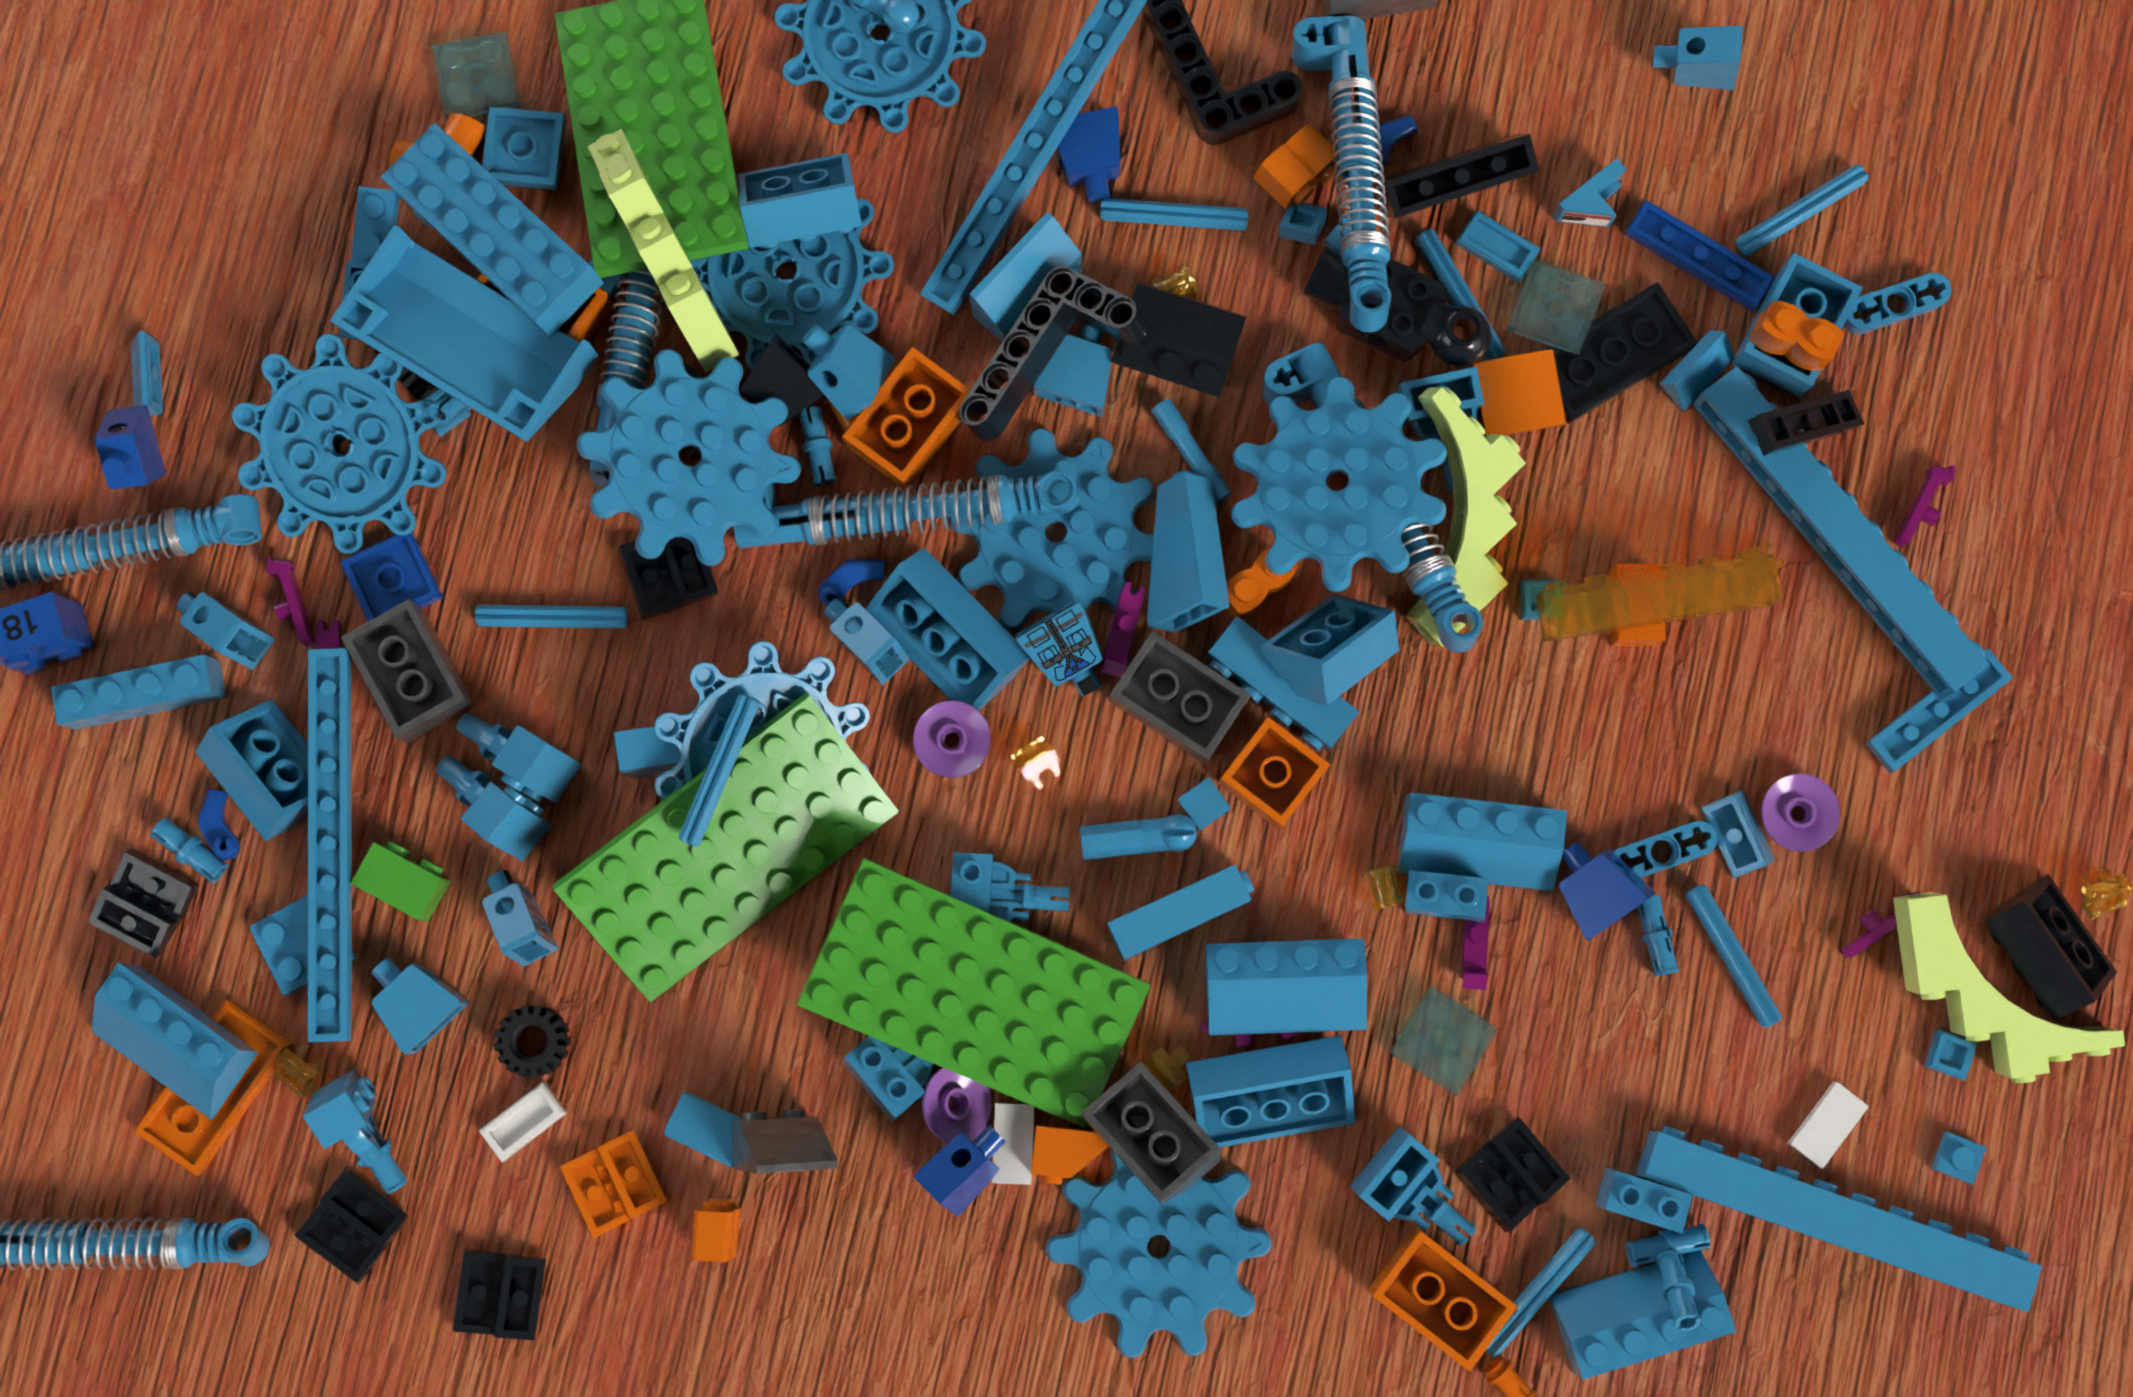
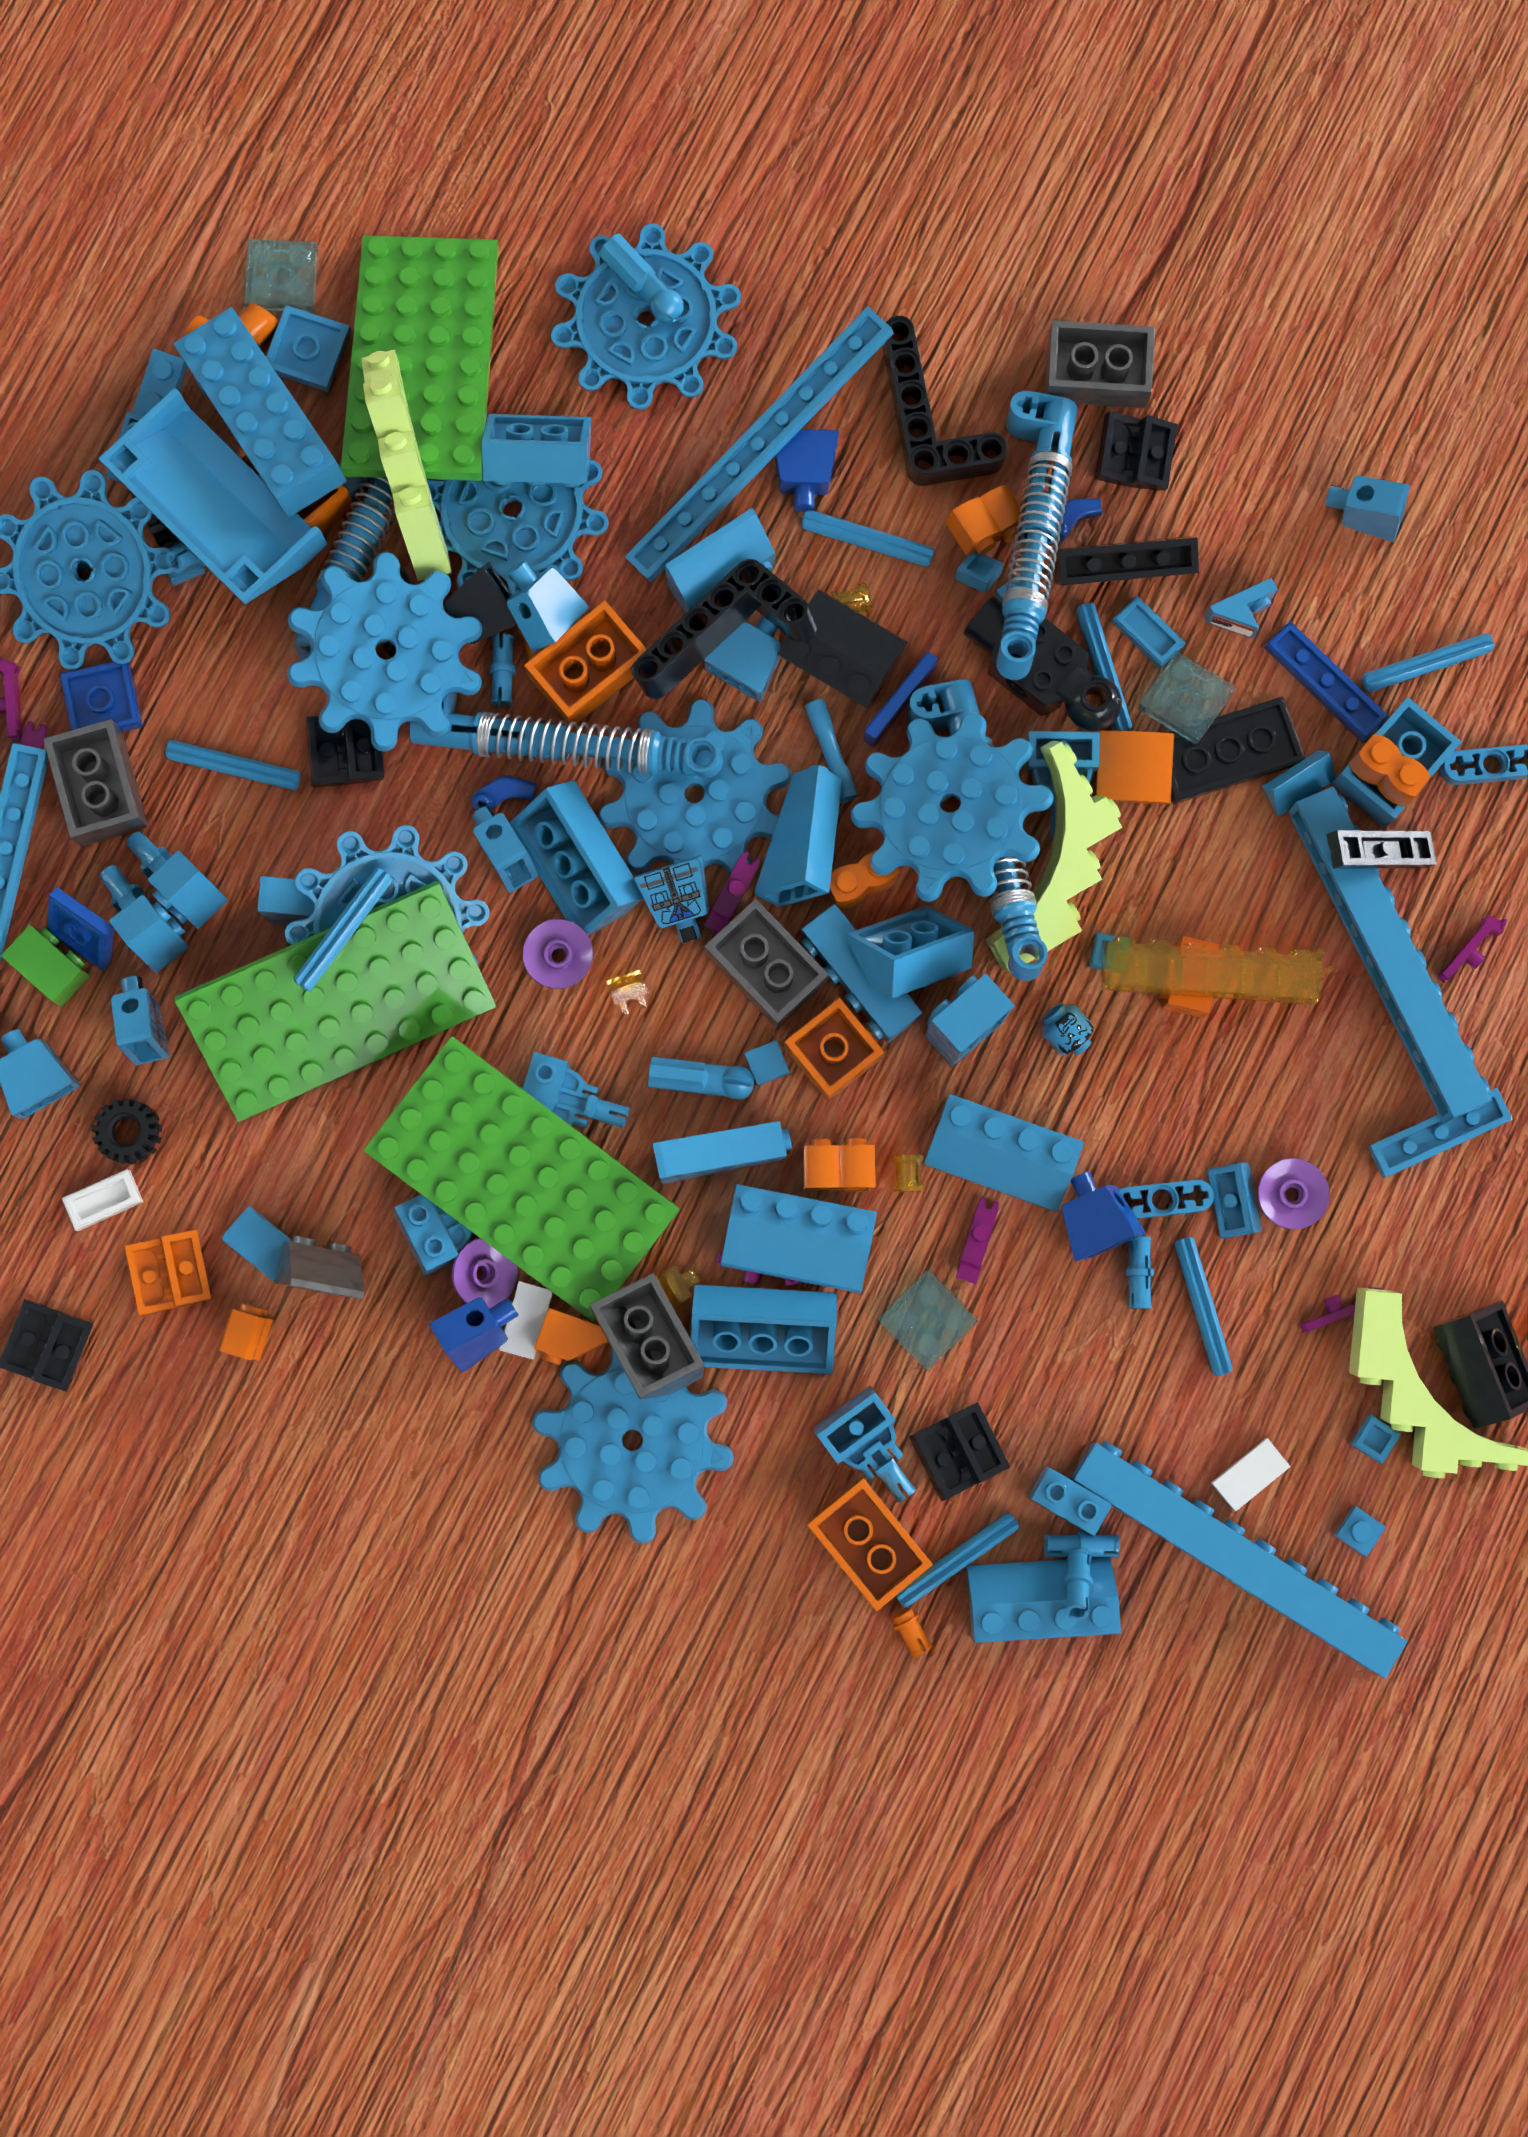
camera: 10 degrees right, 0 degrees up
(430, 834) = (80, 929): none -> blue tile
(1251, 379) = (900, 699): none -> blue tile
(1308, 898) = (839, 1166): none -> orange brick
(1416, 704) = (969, 1019): none -> dark azure brick
(1437, 56) = (1136, 451): none -> black slope
(1446, 896) = (960, 1193): dark azure brick -> none
(1516, 692) = (1067, 1029): none -> dark azure head

